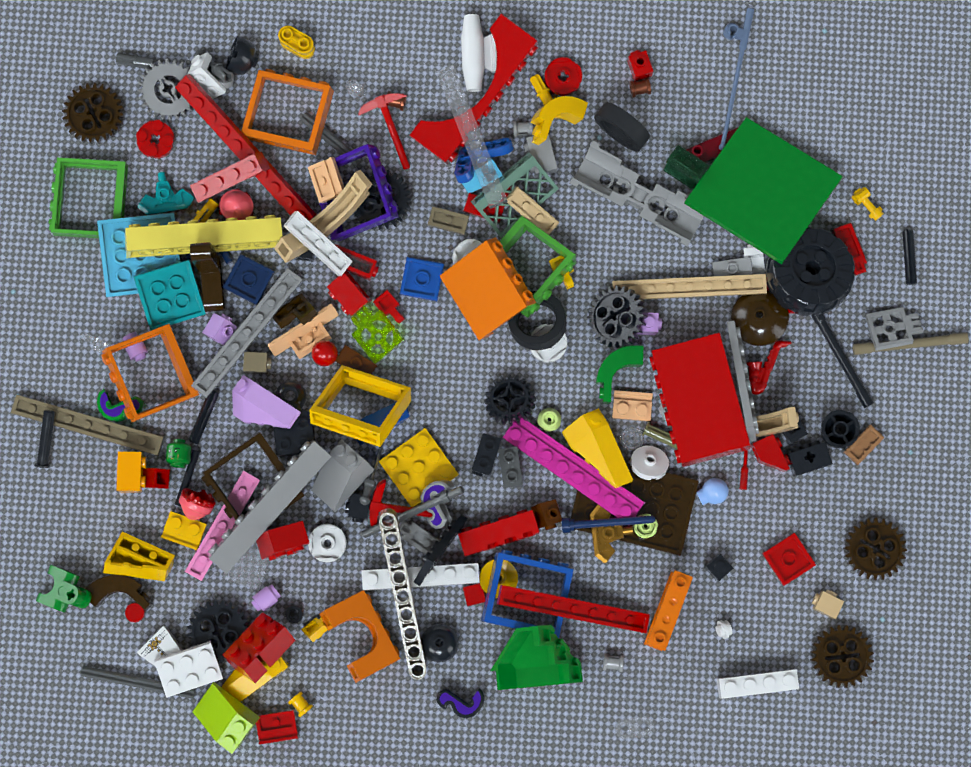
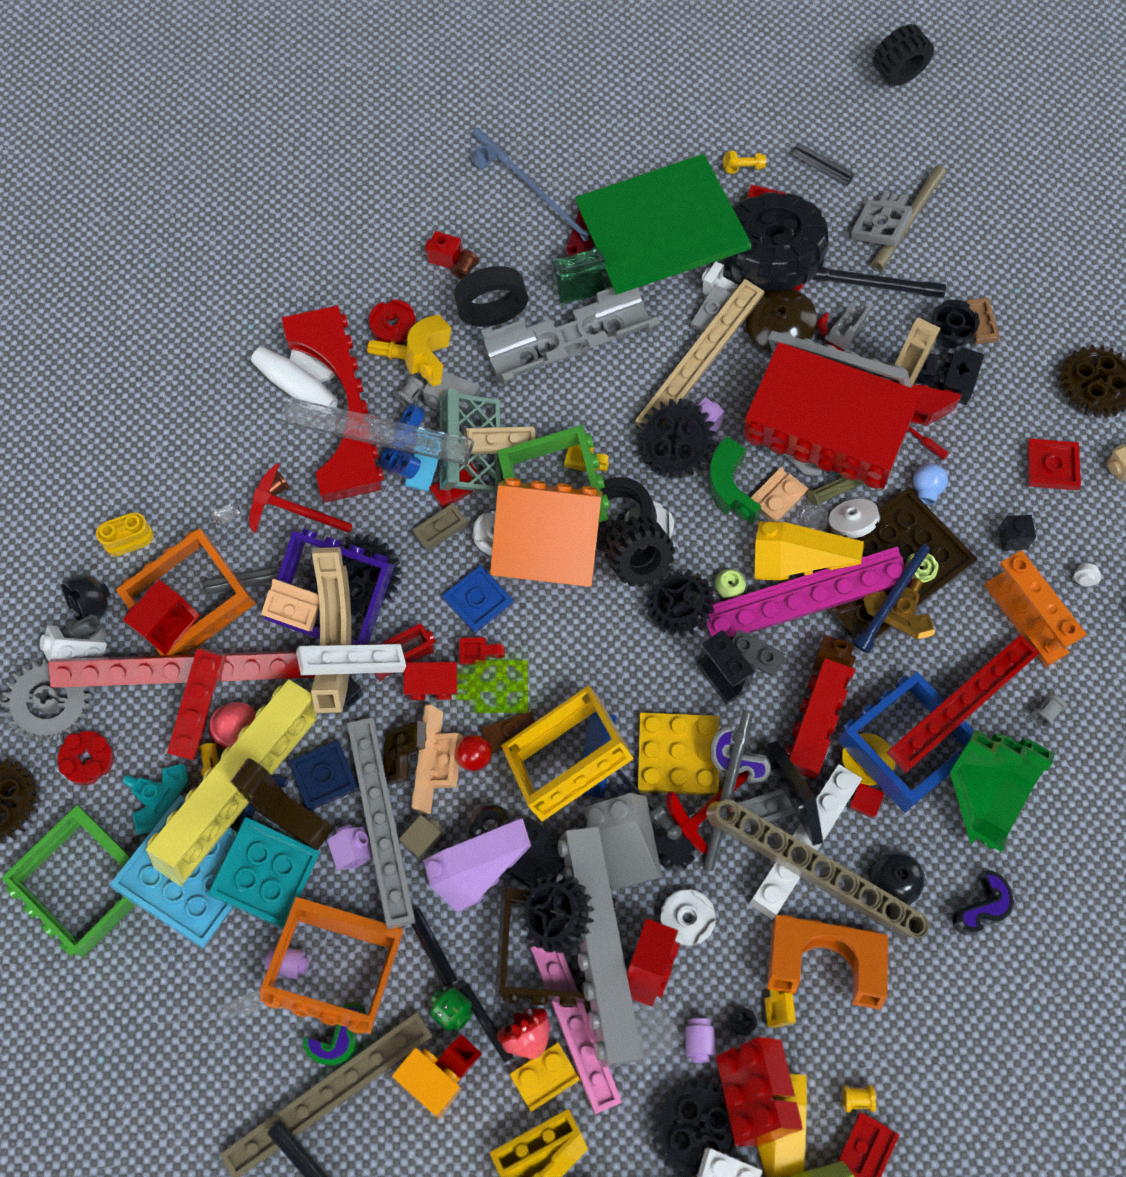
camera: 50 degrees left, 15 degrees down
(258, 115) = (161, 616): none -> red brick
(271, 471) = (561, 892): none -> black gear
(518, 352) = (648, 564): none -> black tyre
(788, 362) = (848, 325): none -> light grey hinge

